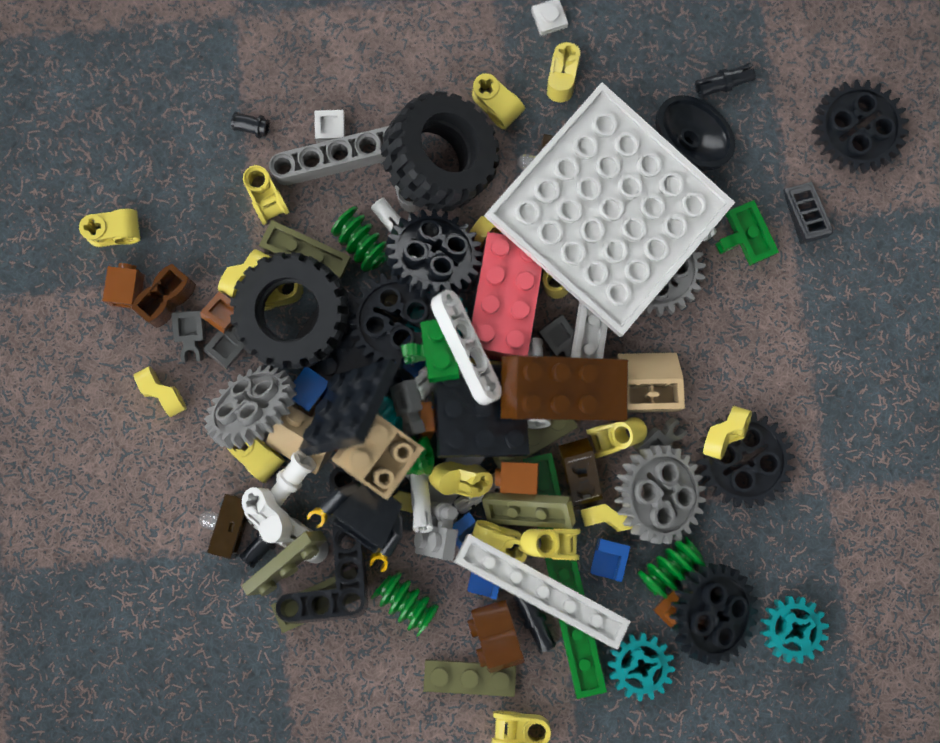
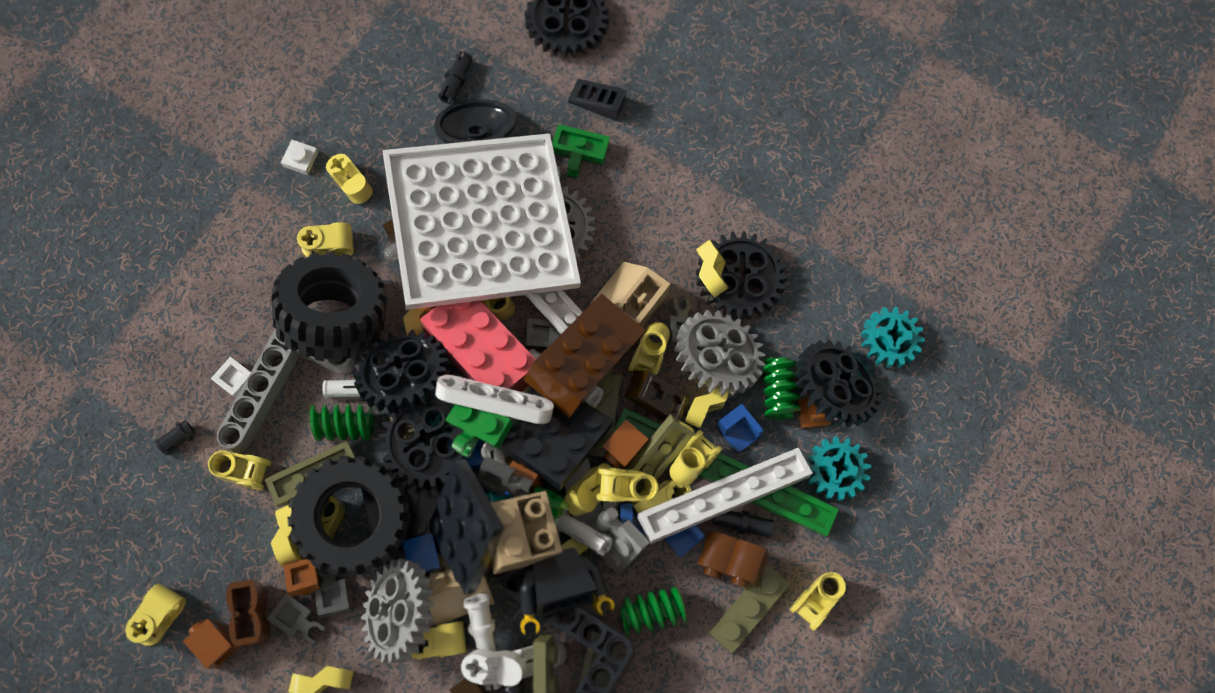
camera: 55 degrees left, 10 degrees down
(479, 502) = (620, 485): none -> light yellow piece

